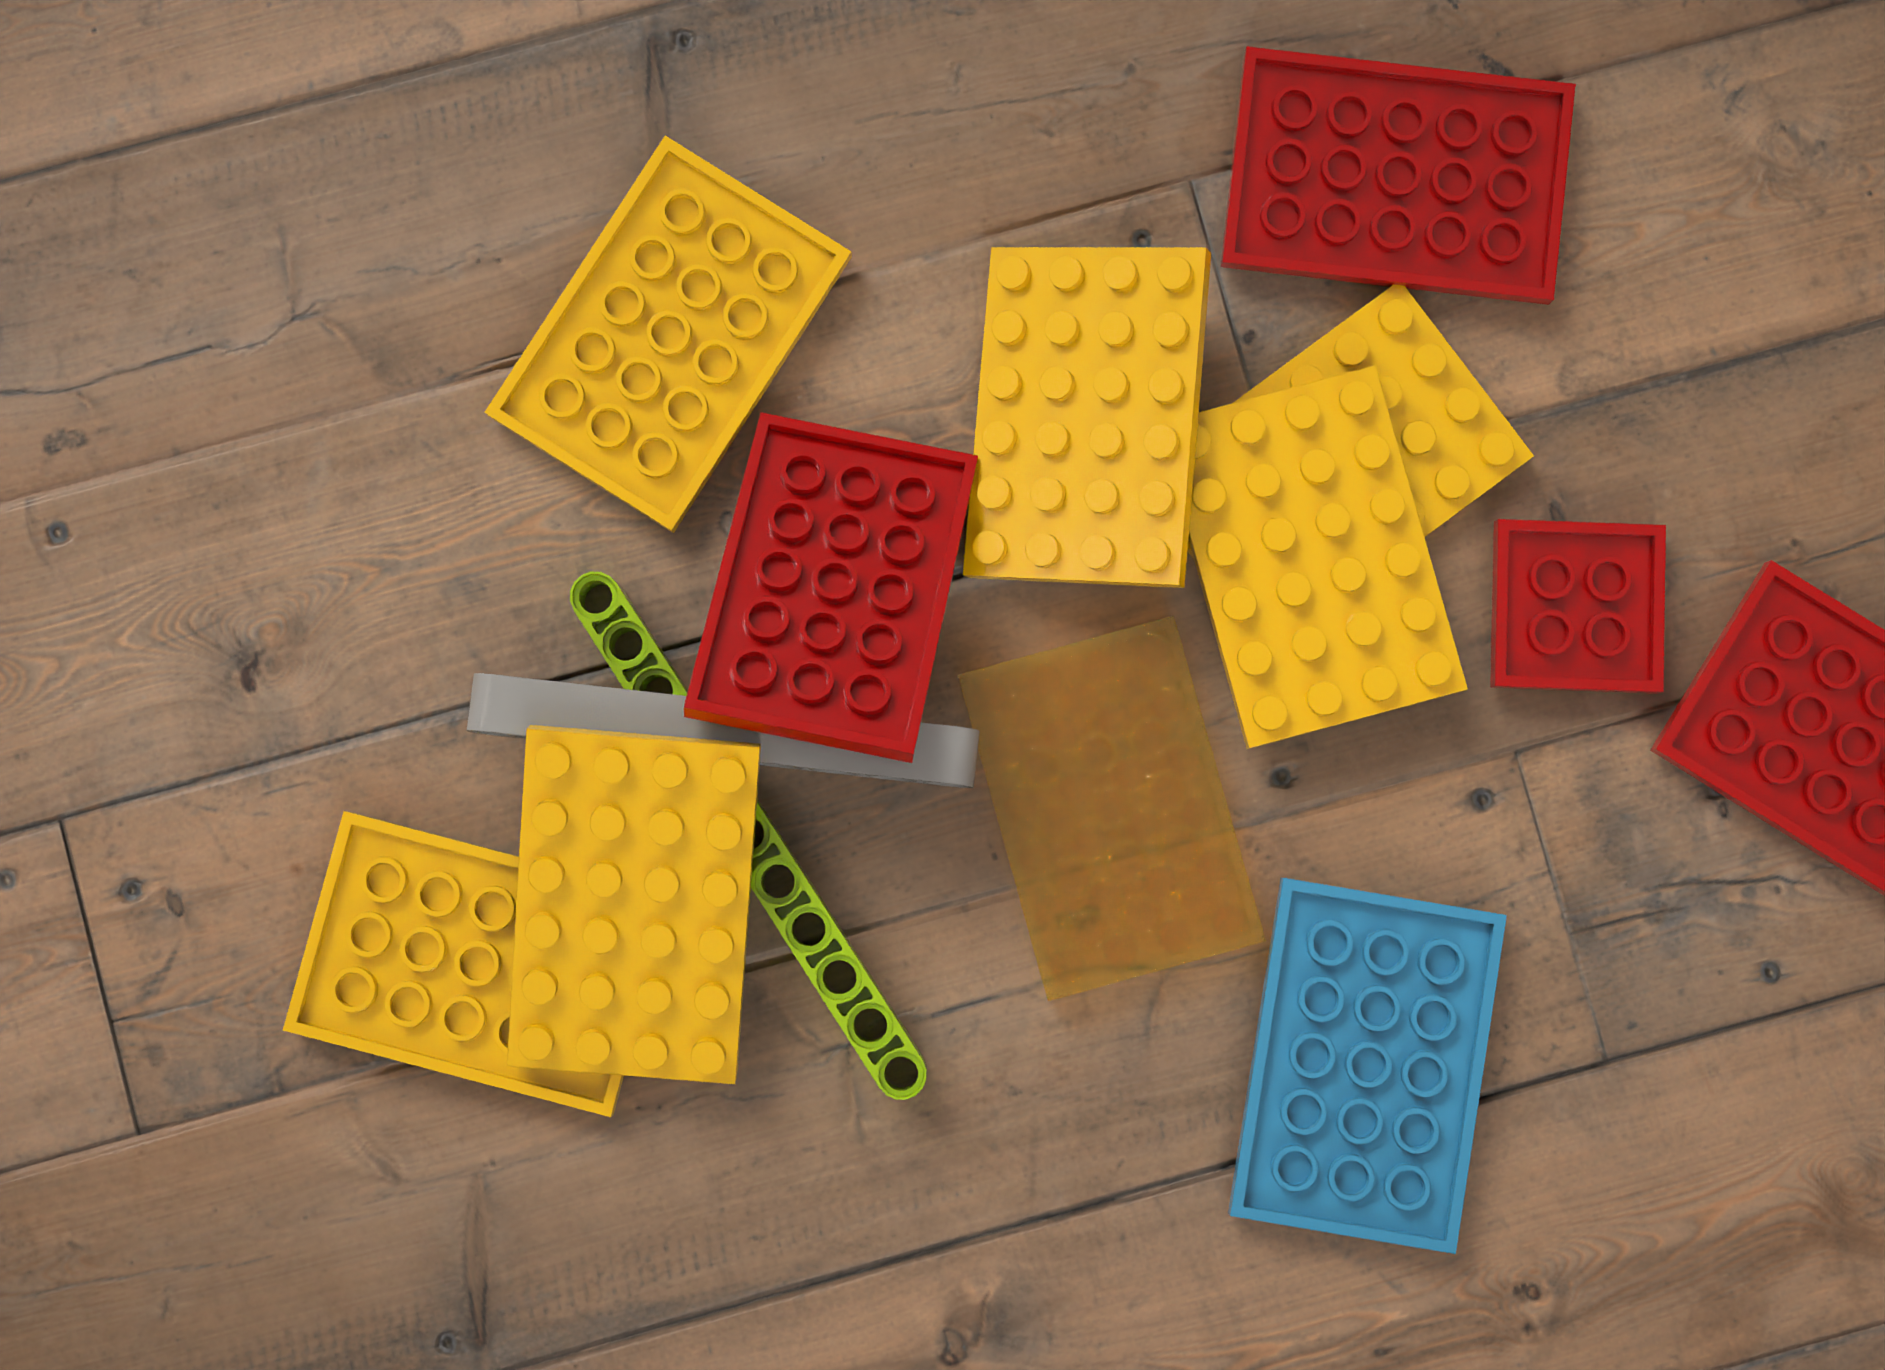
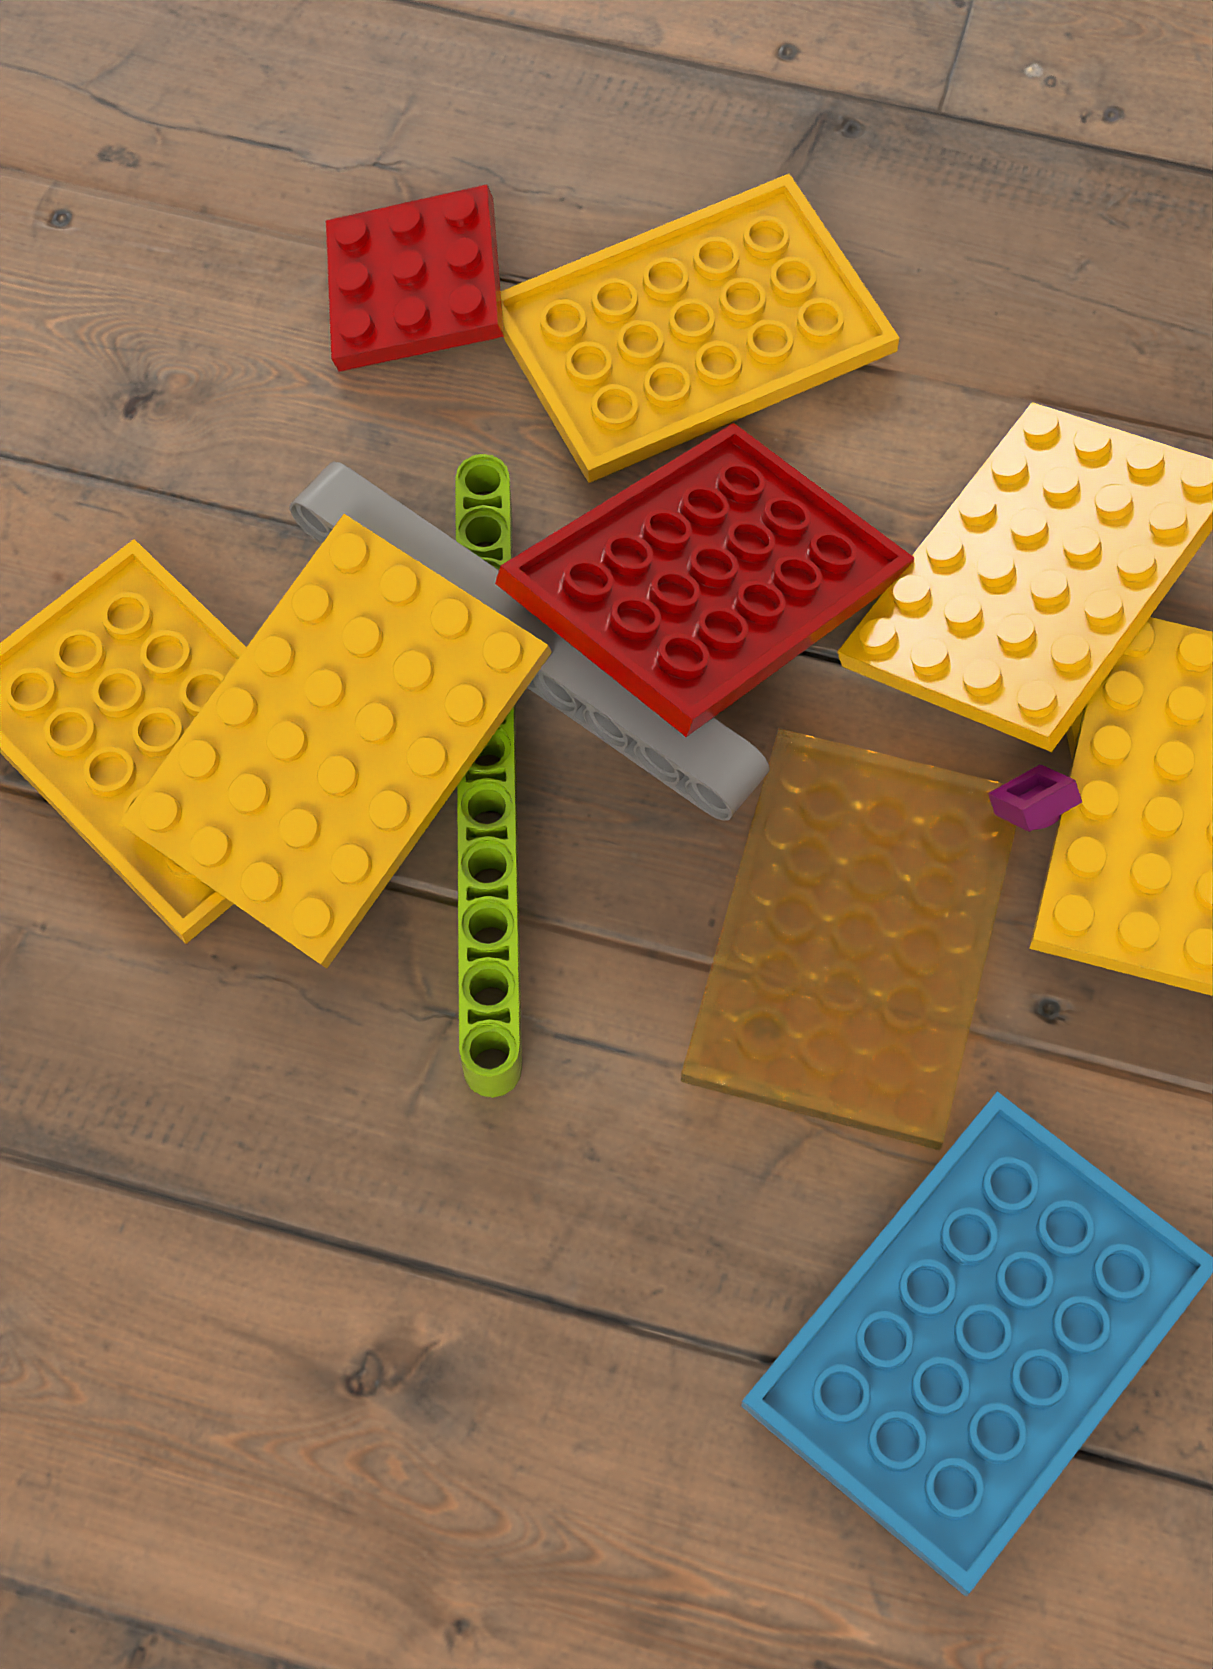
camera: 30 degrees right, 20 degrees down
(409, 427) = (413, 278): none -> red plate
(1190, 630) = (1035, 798): none -> magenta plate

